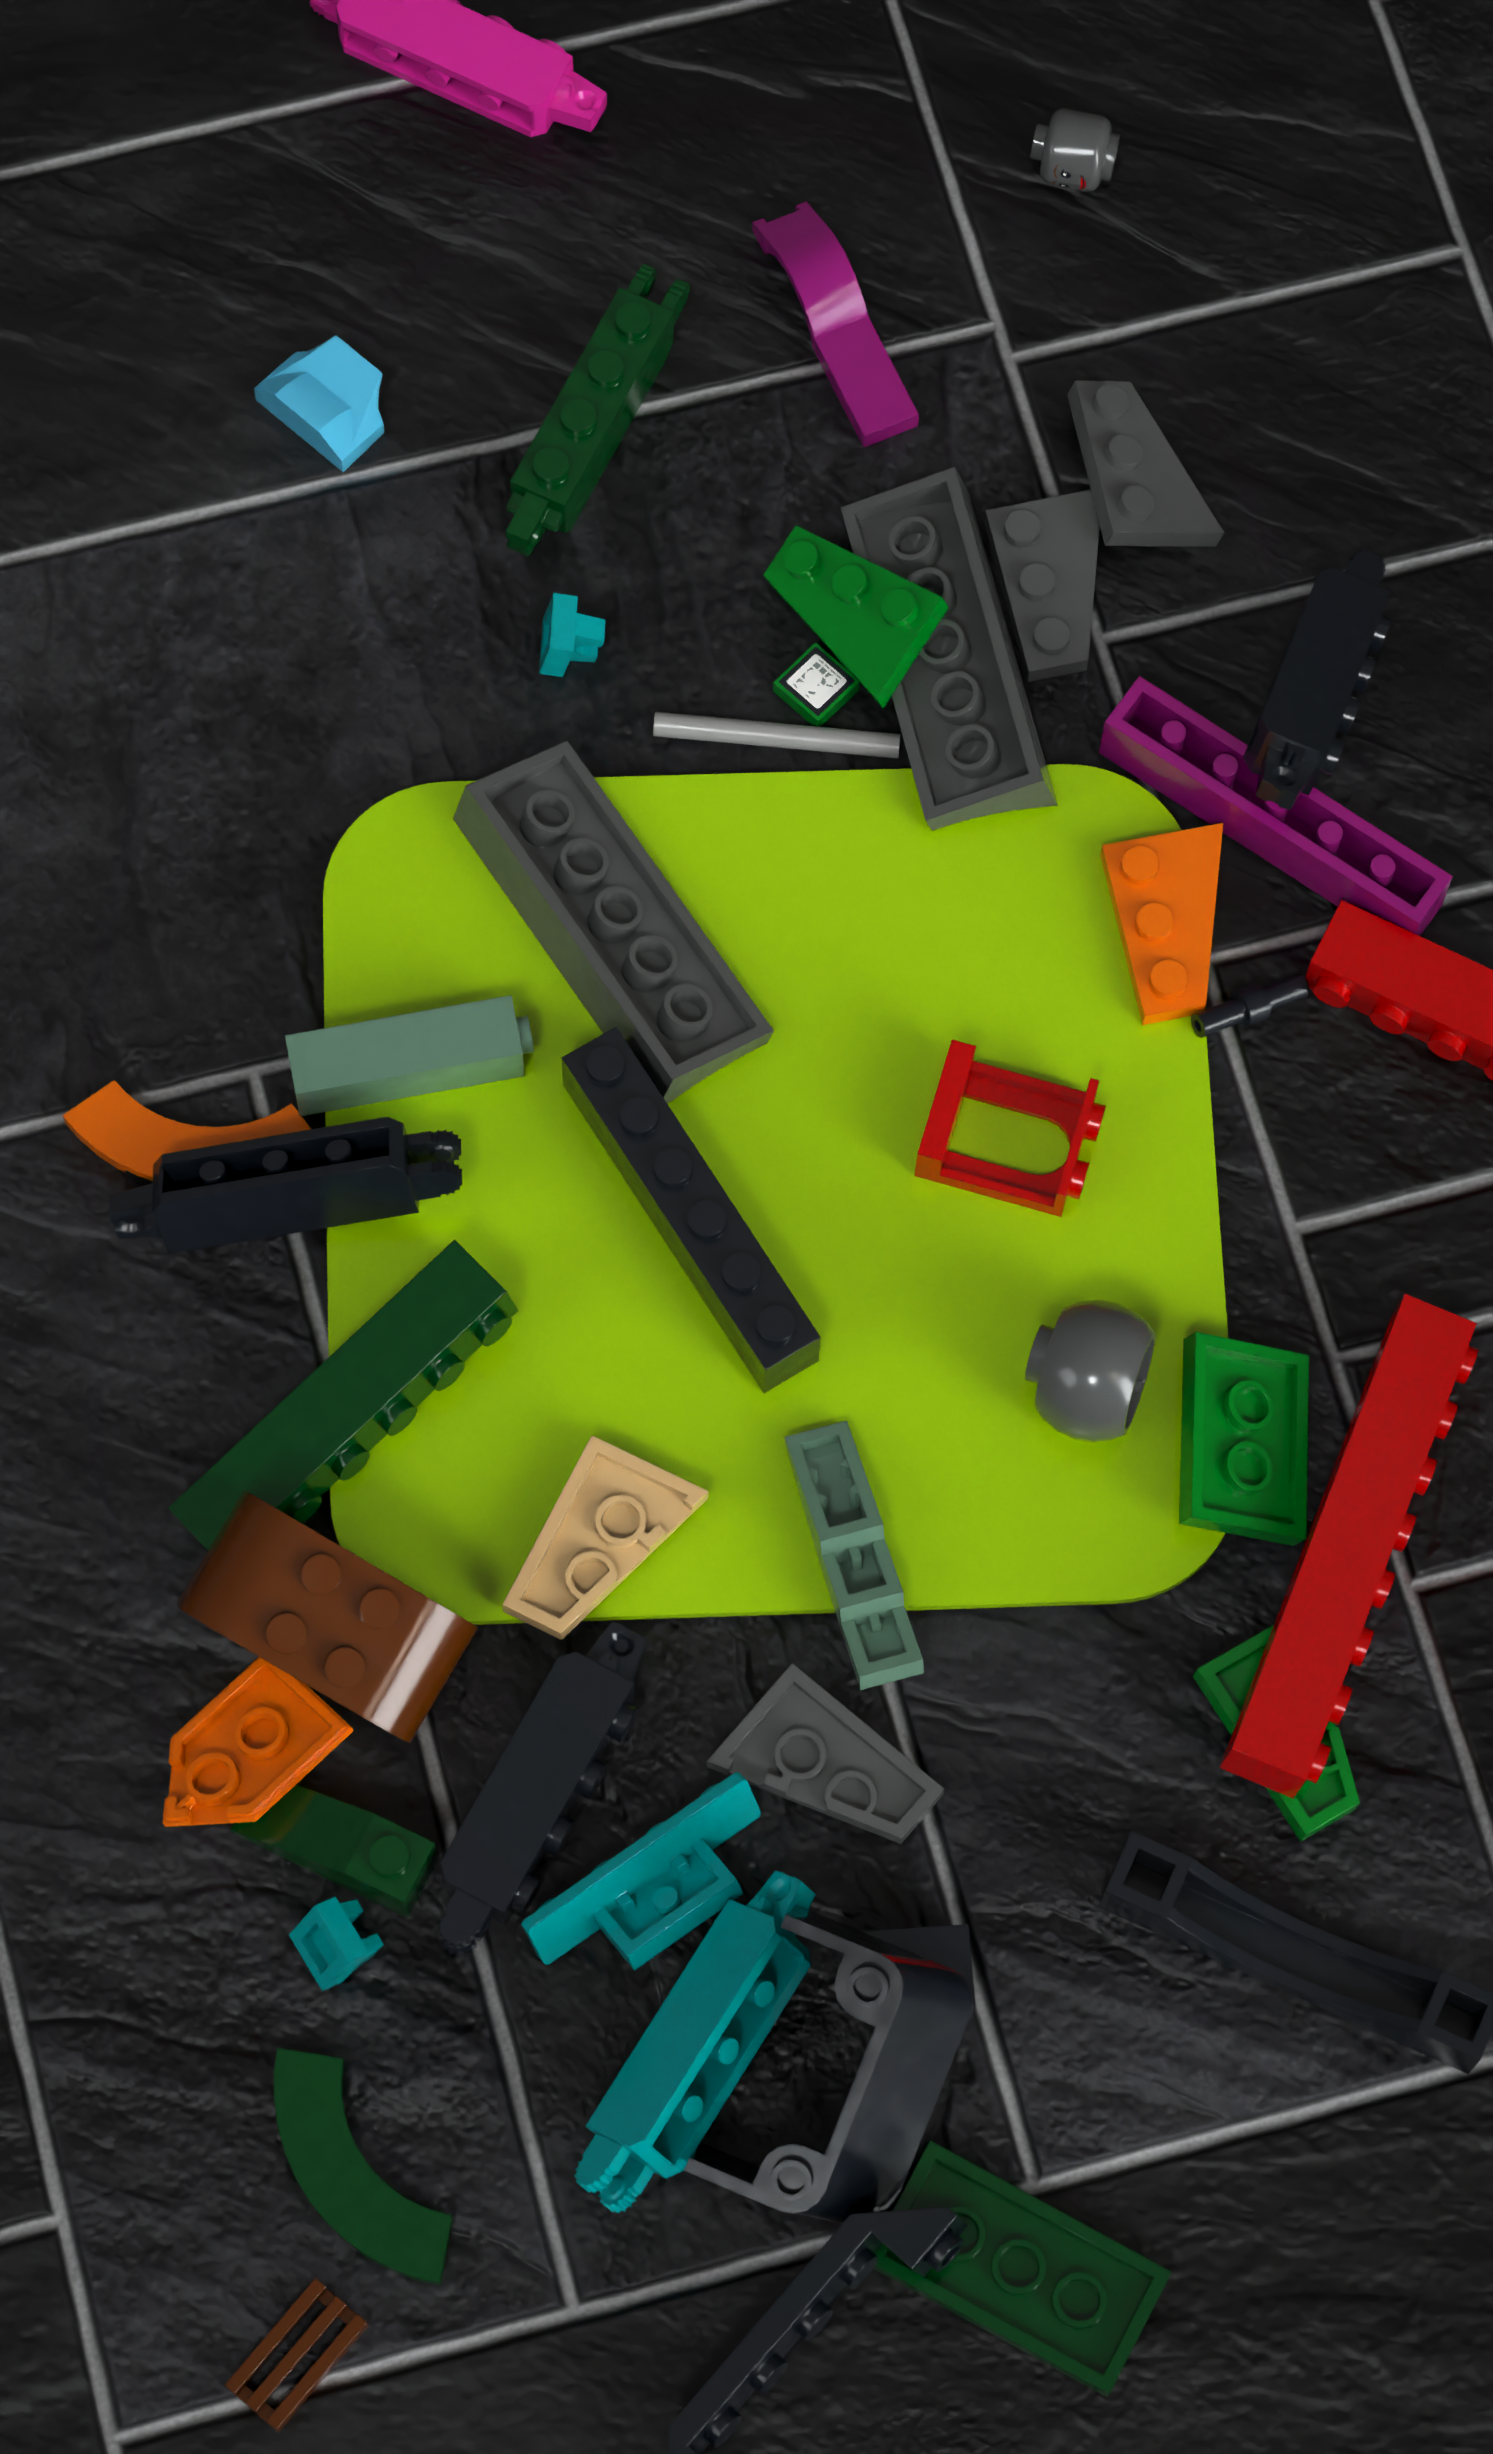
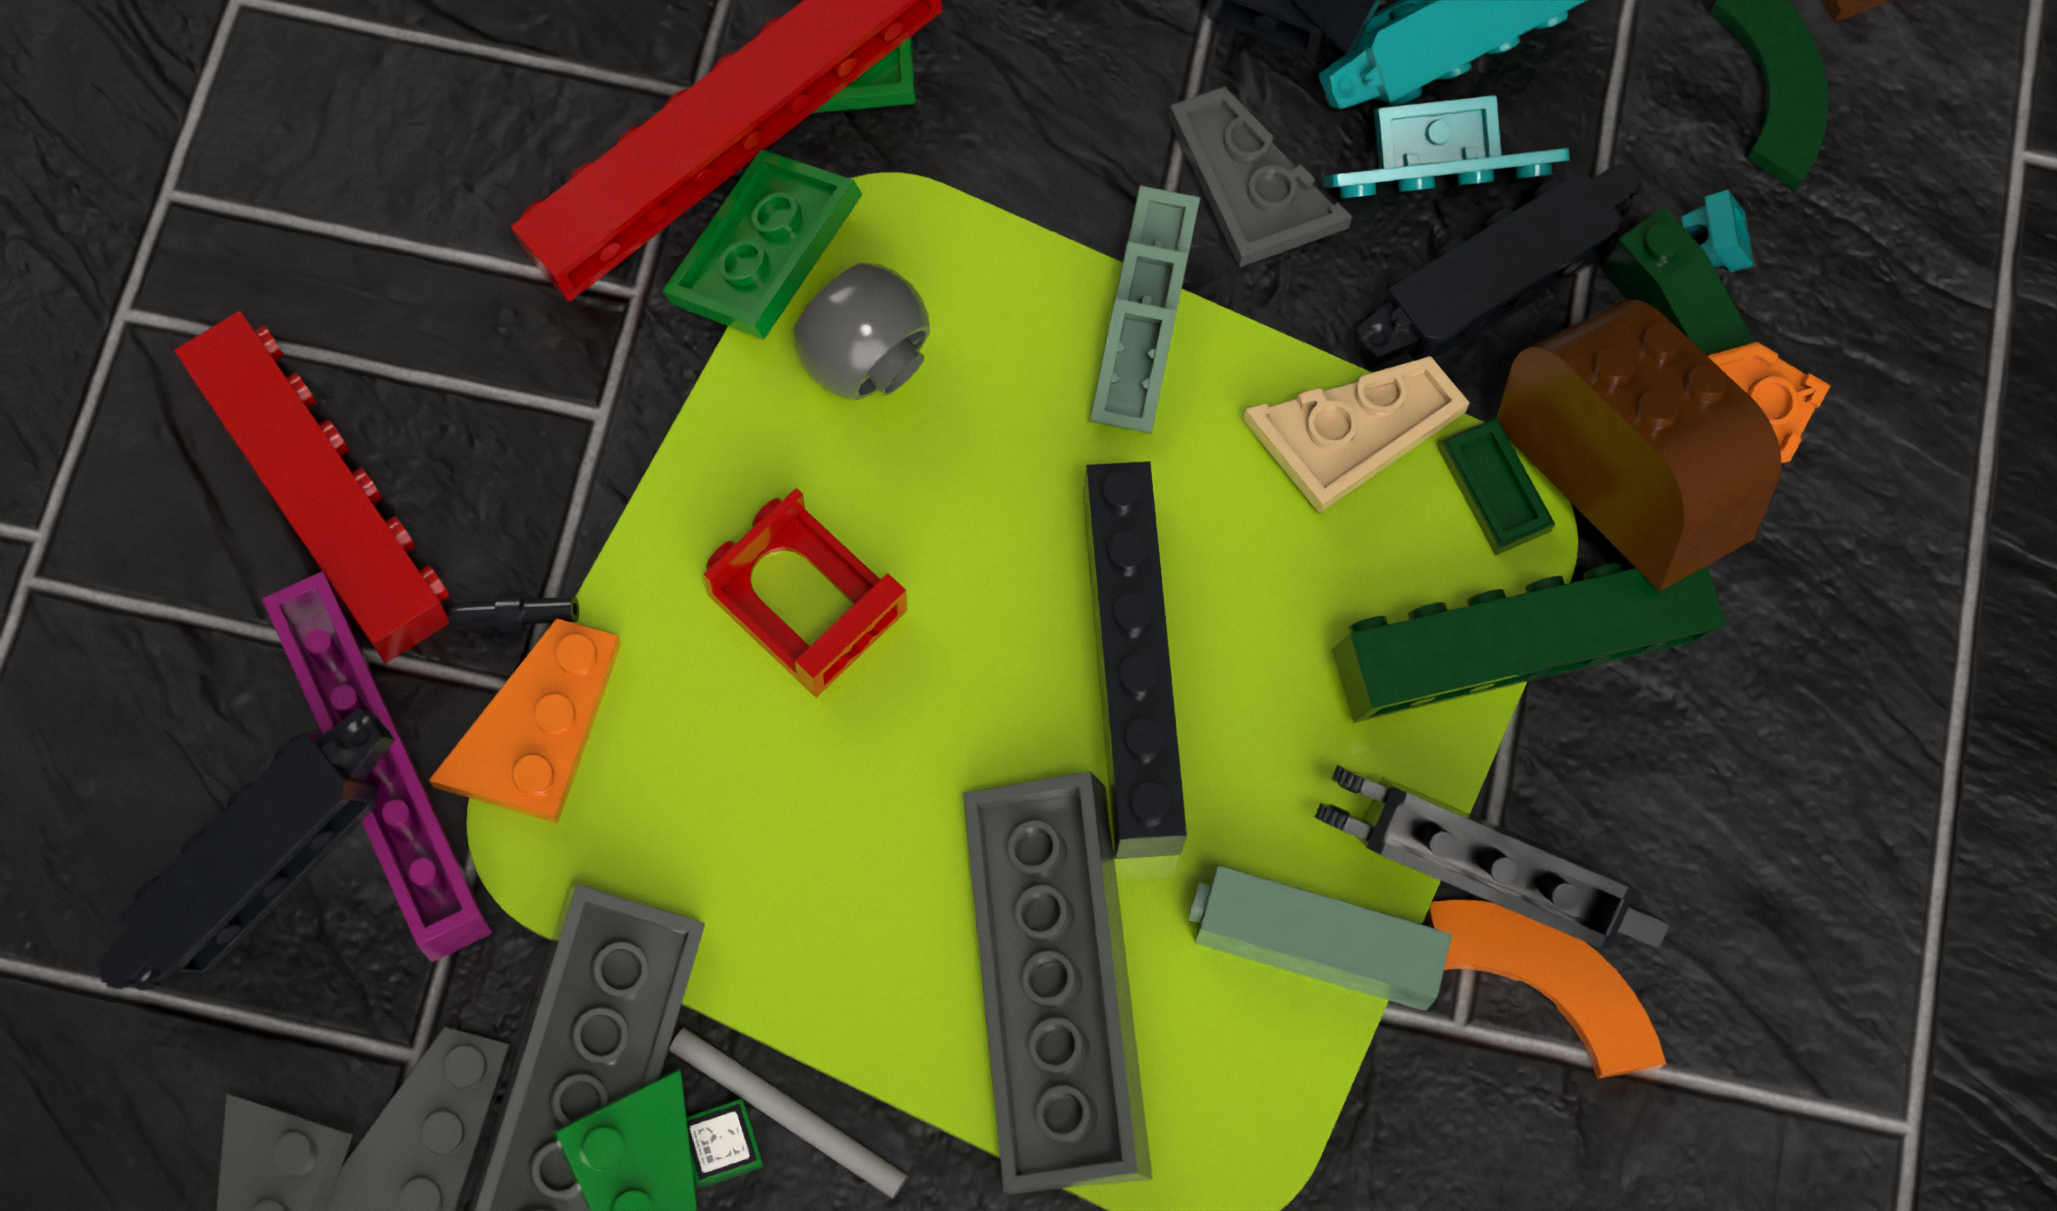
camera: 155 degrees left, 0 degrees up
(440, 1553) = (1496, 486): none -> dark green tile

